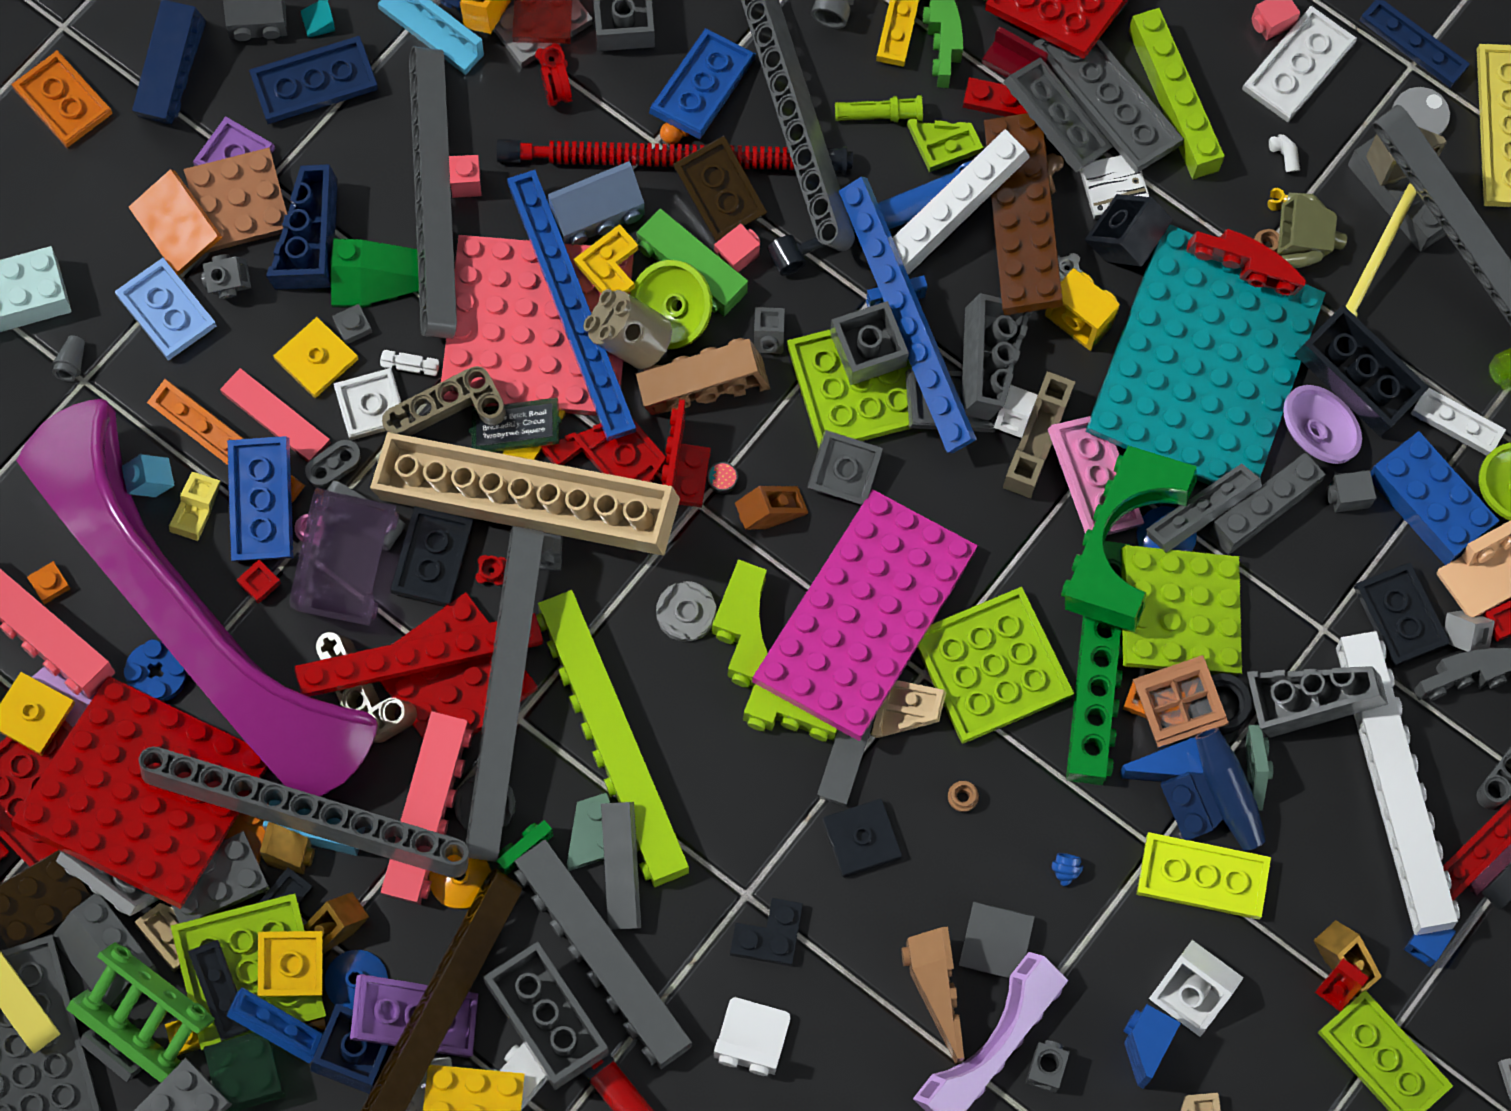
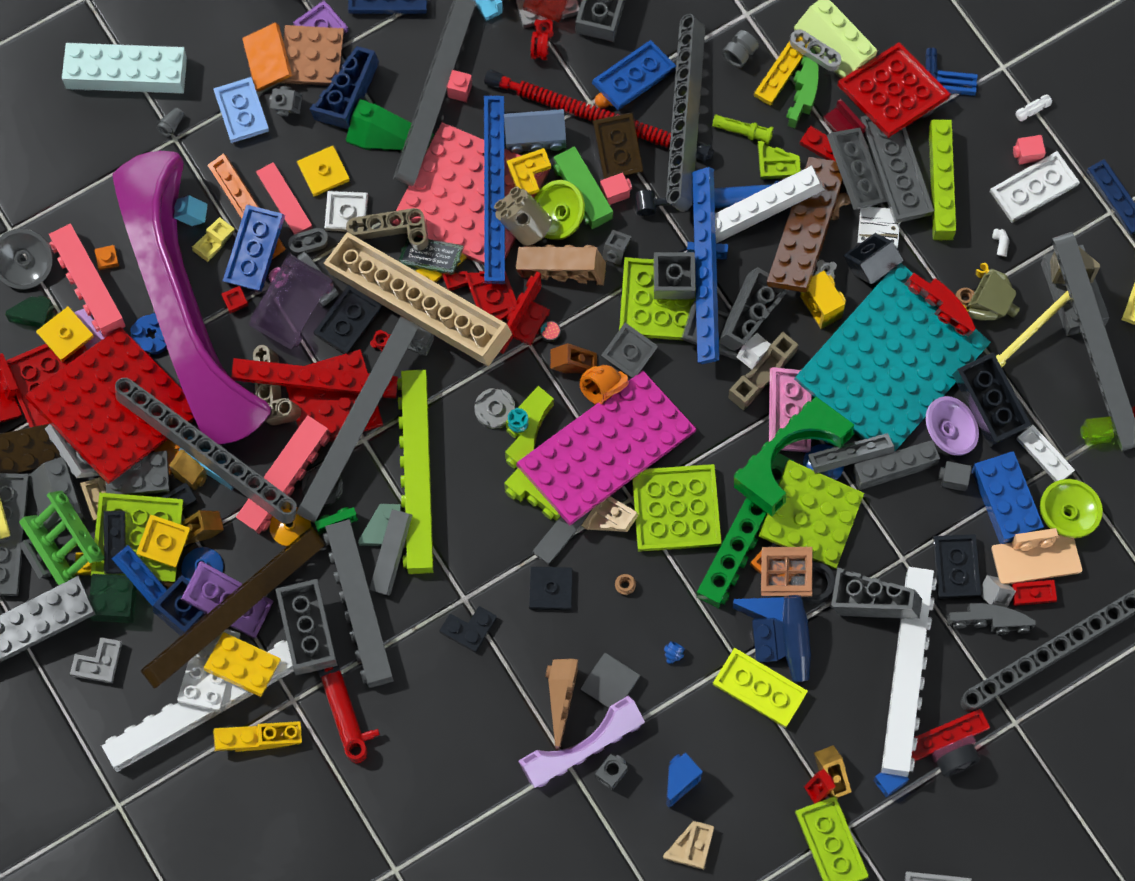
camera: 25 degrees right, 0 degrees up
(352, 324) = (353, 157): dark grey plate -> none
(409, 363) = (380, 193): white axle -> none
(732, 611) = (520, 416): none -> teal wheel
(752, 1036) = (432, 687): white bracket -> none
(827, 523) = (604, 381): none -> orange helmet
(1196, 988) = (726, 756): white slope -> none
(1258, 767) = (822, 631): sand green wing -> none
(1426, 108) = (1103, 245): light grey tile -> none

